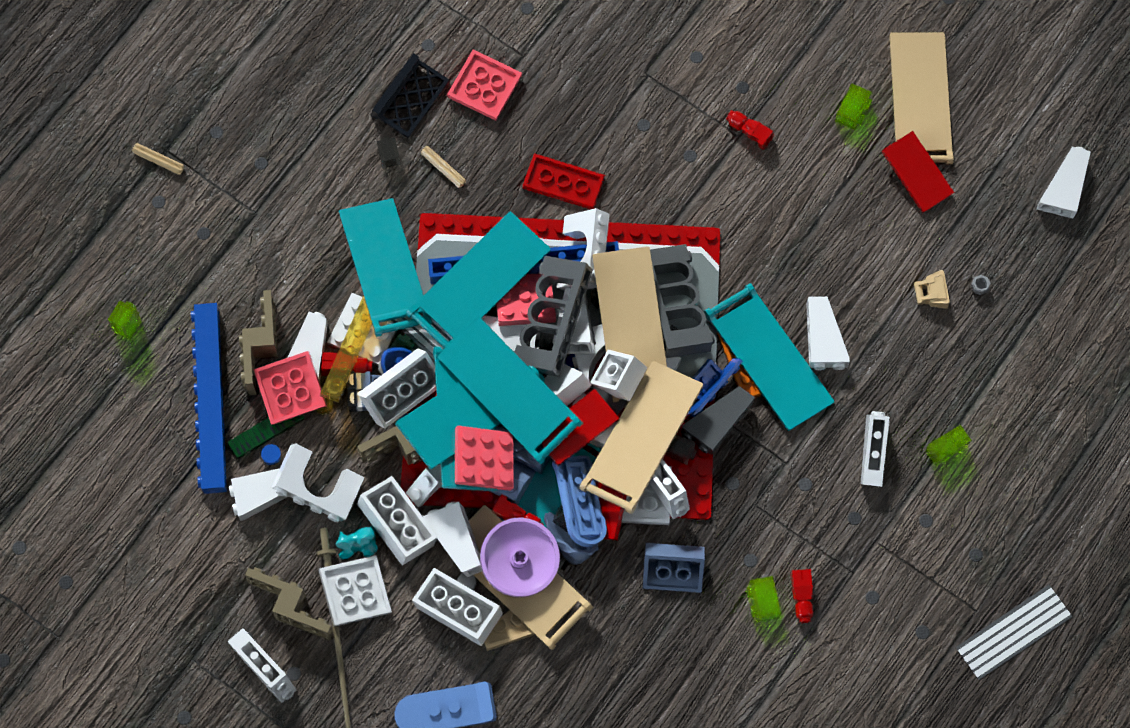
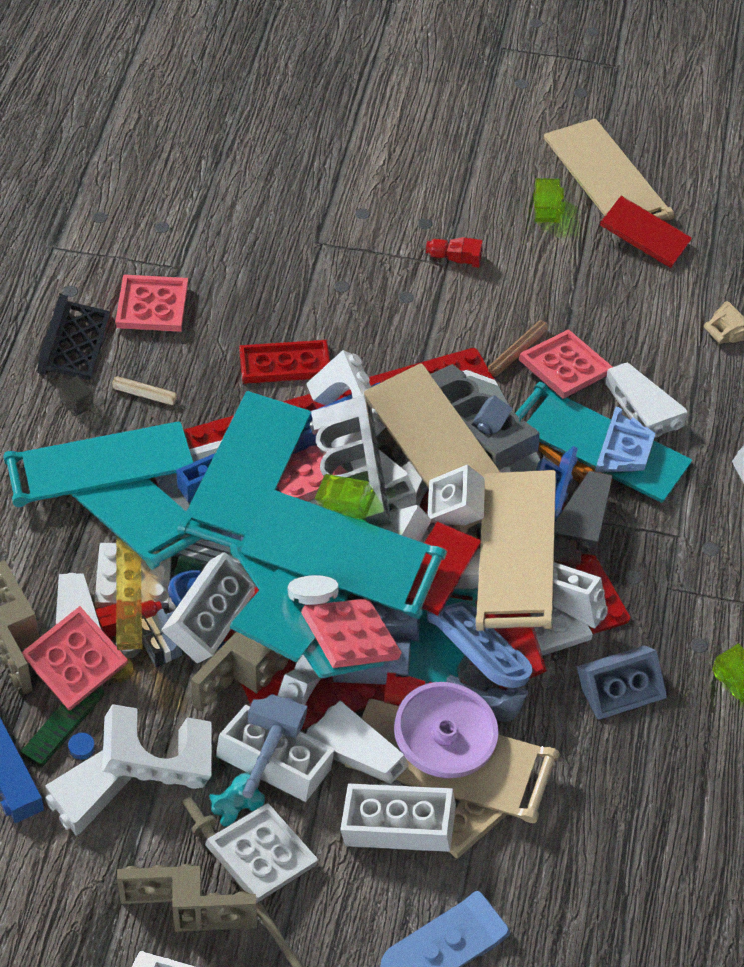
camera: 25 degrees left, 20 degrees down
(381, 222) = (98, 462): none -> teal flag
(408, 499) = (280, 717): none -> sand blue piece
(471, 413) = (313, 589): none -> white tile
(530, 345) = (345, 495): none -> clear neon green brick
(682, 313) = (492, 415): none -> sand blue brick
(753, 243) = (518, 347): none -> medium nougat axle
(780, 275) = (565, 363): none -> coral plate
(784, 371) = (625, 445): none -> light blue wing

